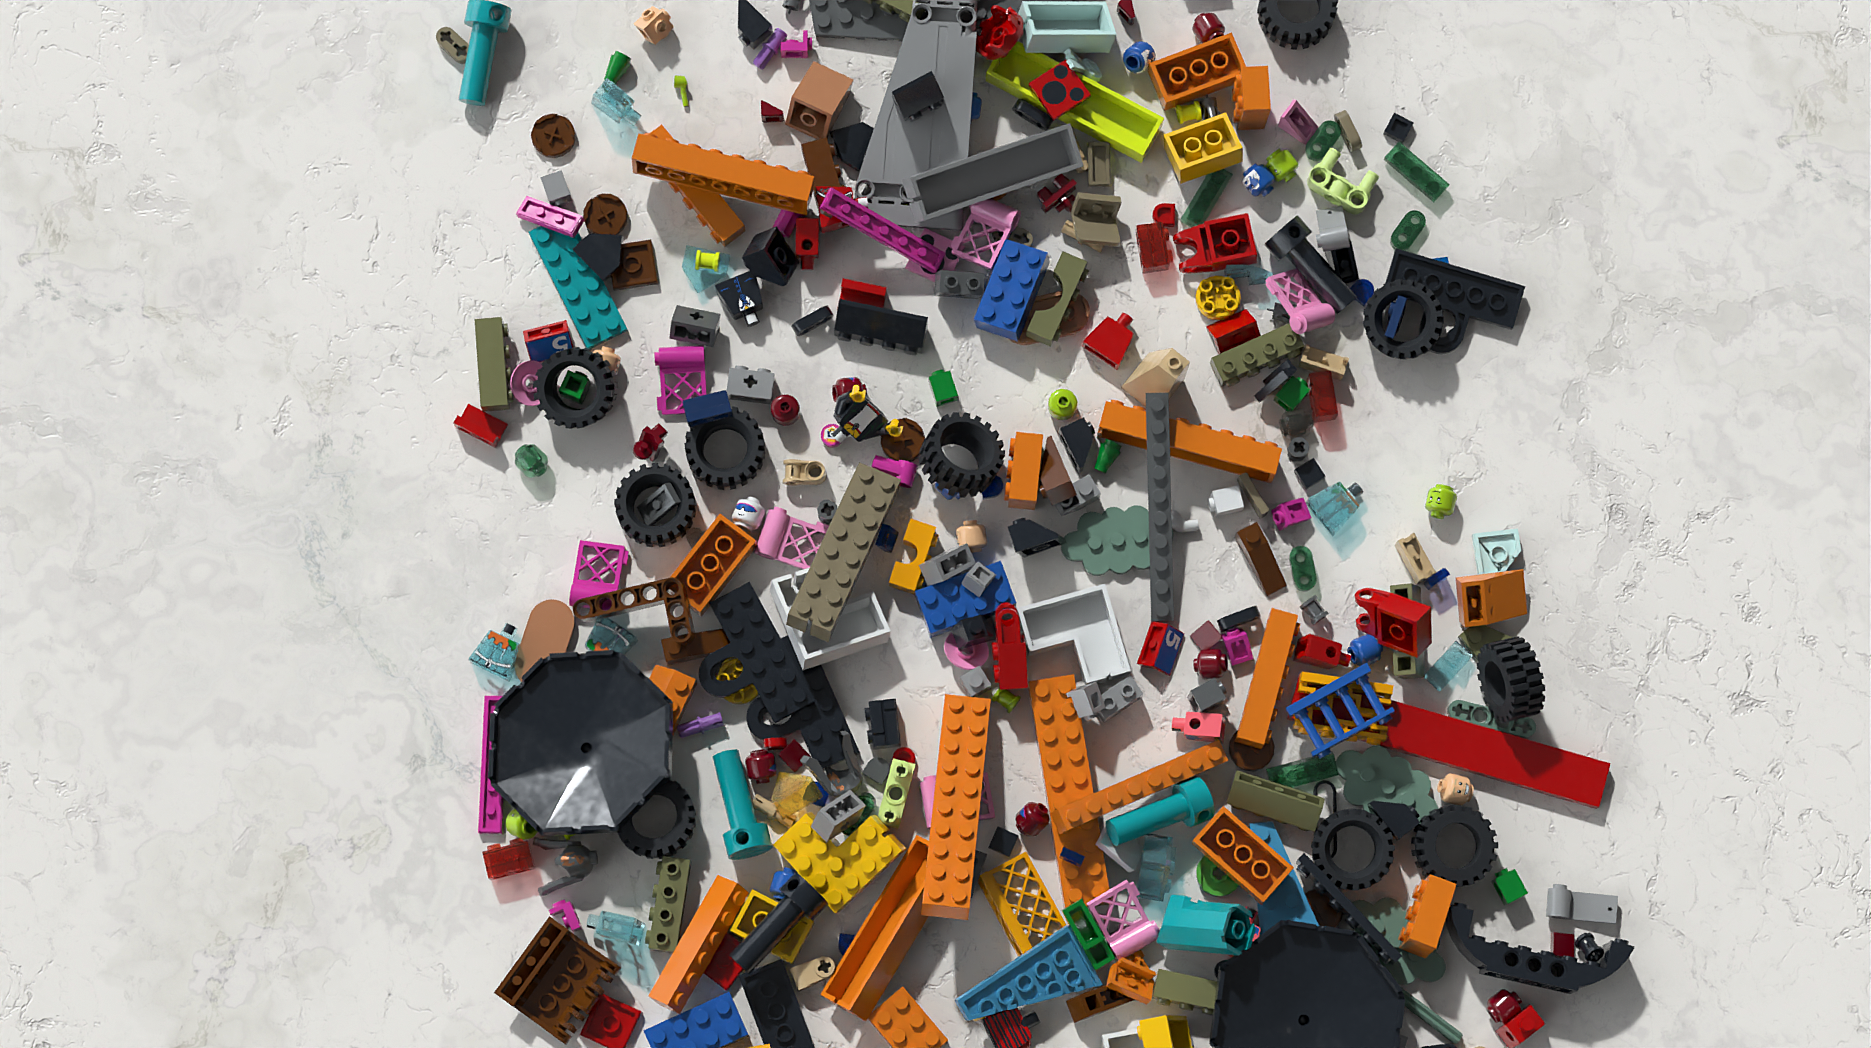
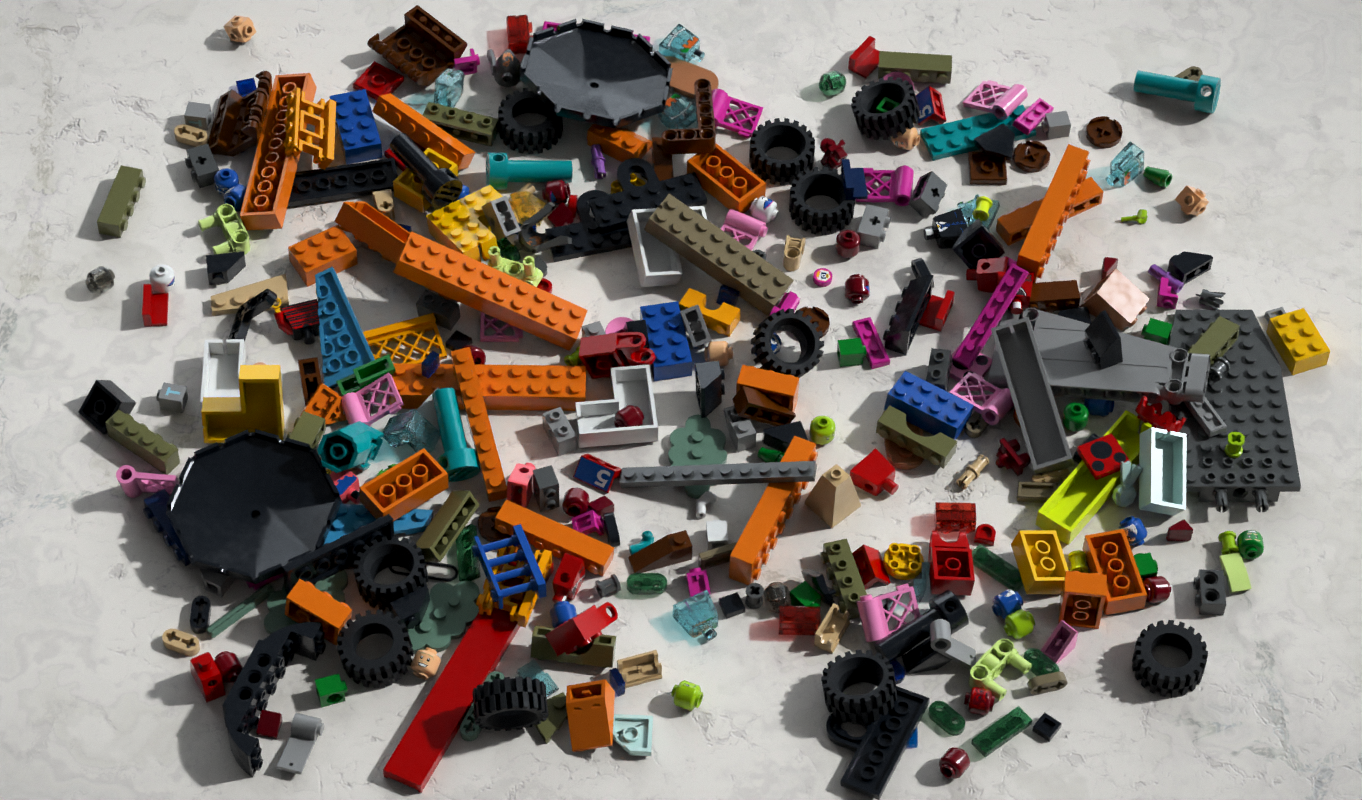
camera: 100 degrees right, 25 degrees down
(532, 245) = (1003, 103): none -> bright pink piece
(658, 504) = (782, 153): dark grey plate -> none
(856, 51) = (1157, 331): none -> green brick
(861, 418) = (833, 287): torso -> none
(884, 724) = (573, 274): black brick -> none
(919, 368) = (869, 337): none -> dark pink tile
(978, 579) = (679, 340): light grey slope -> none
(993, 130) = (1075, 416): none -> green head
(1087, 700) = (566, 400): light grey brick -> none
(1092, 620) = (629, 417): none -> dark red head
(1096, 219) = (983, 475): dark tan bracket -> none
(1182, 40) = (1146, 565): none -> green brick
(1250, 580) = (645, 541): none -> teal arm
(1384, 197) = (979, 701): none -> dark red head
(1395, 316) = (859, 678): dark blue wing -> none
(1467, 215) = (954, 763): none -> dark red head
(1589, 947) = (266, 739): black bush -> none

